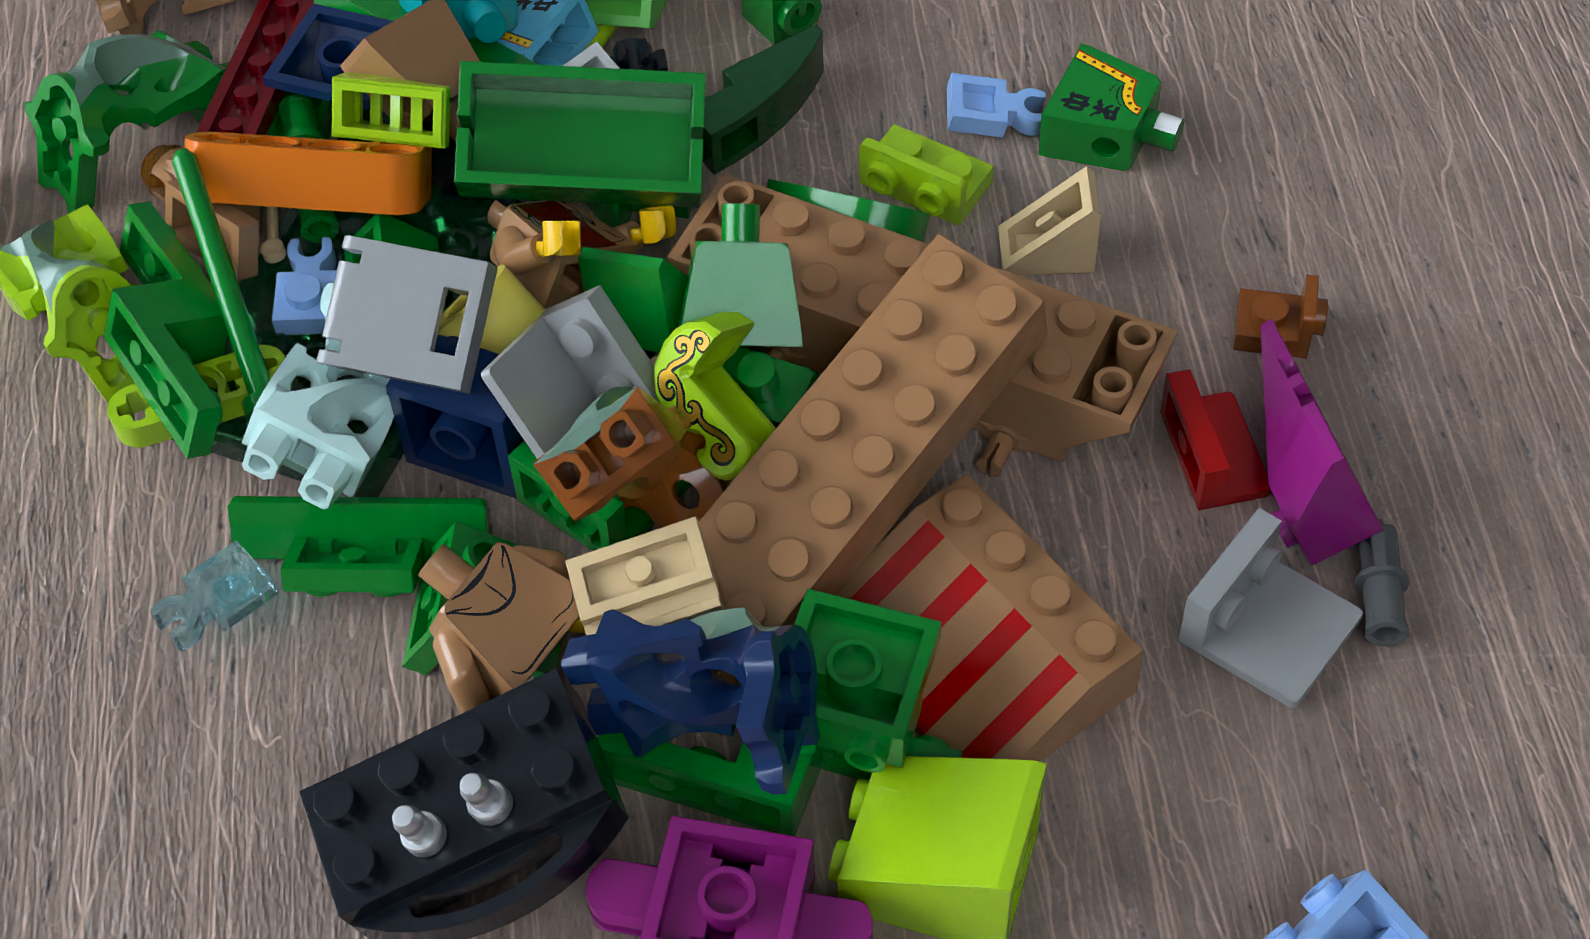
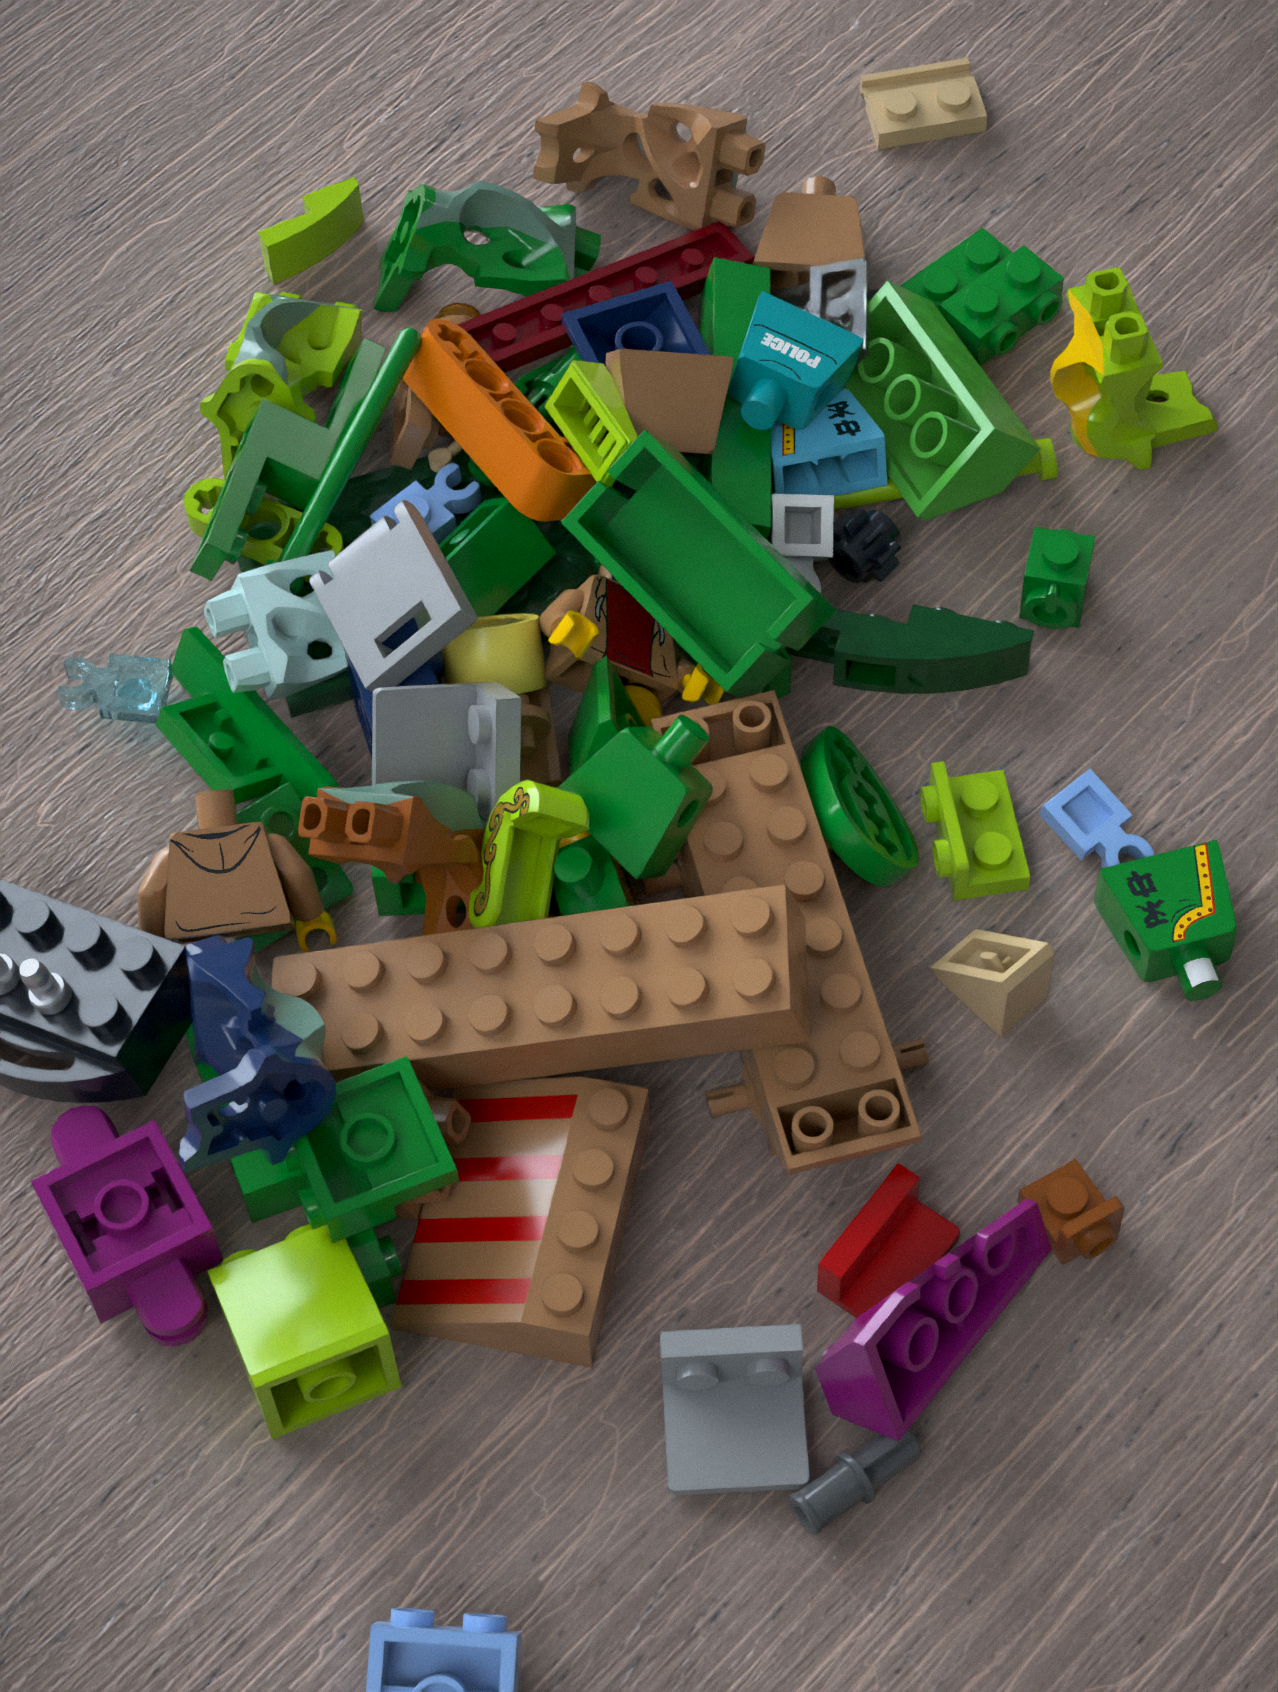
camera: 50 degrees right, 5 degrees up
(647, 577) = (314, 947): tan plate -> none

